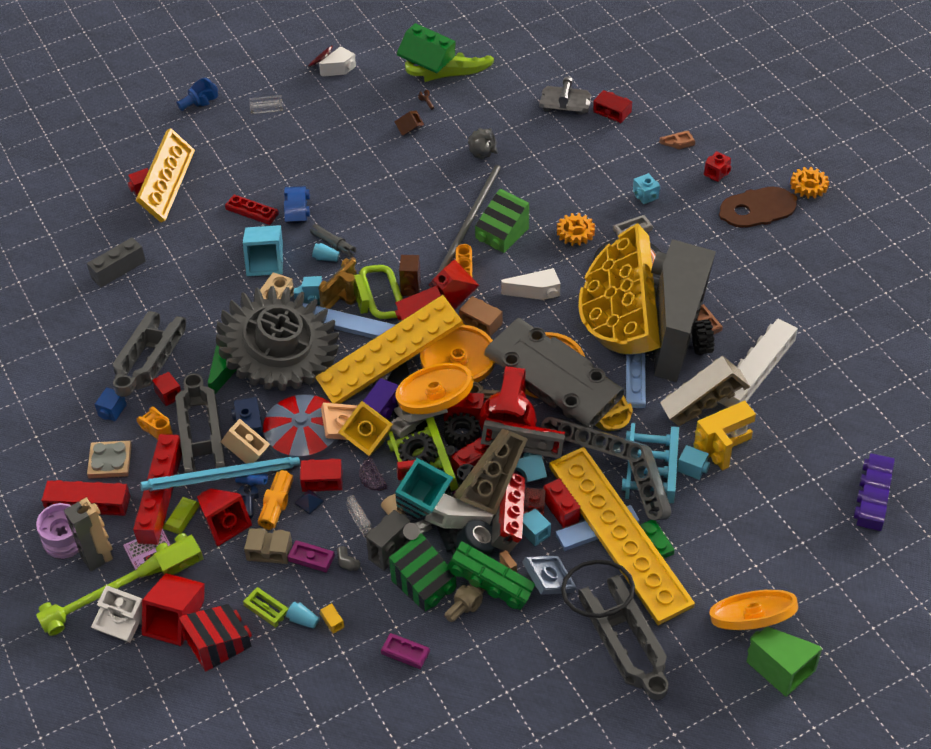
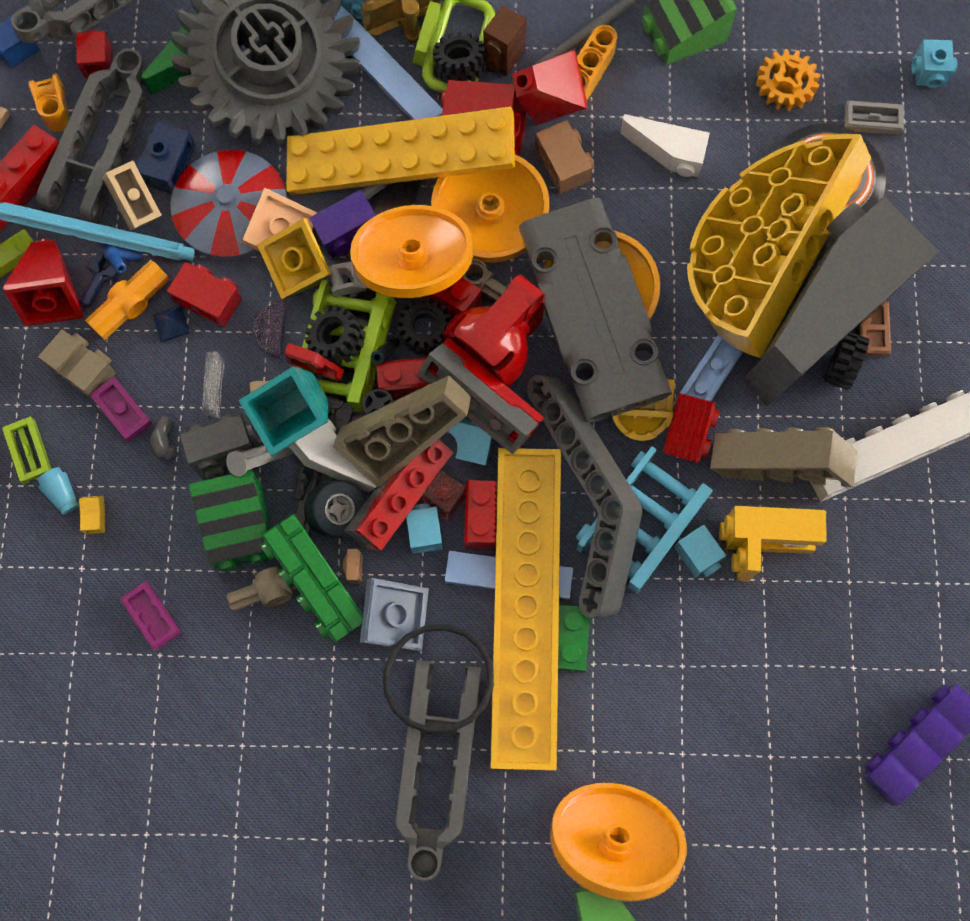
camera: 30 degrees right, 25 degrees up
(389, 293) = (458, 47): none -> black tyre
(644, 406) = (690, 428): none -> red brick

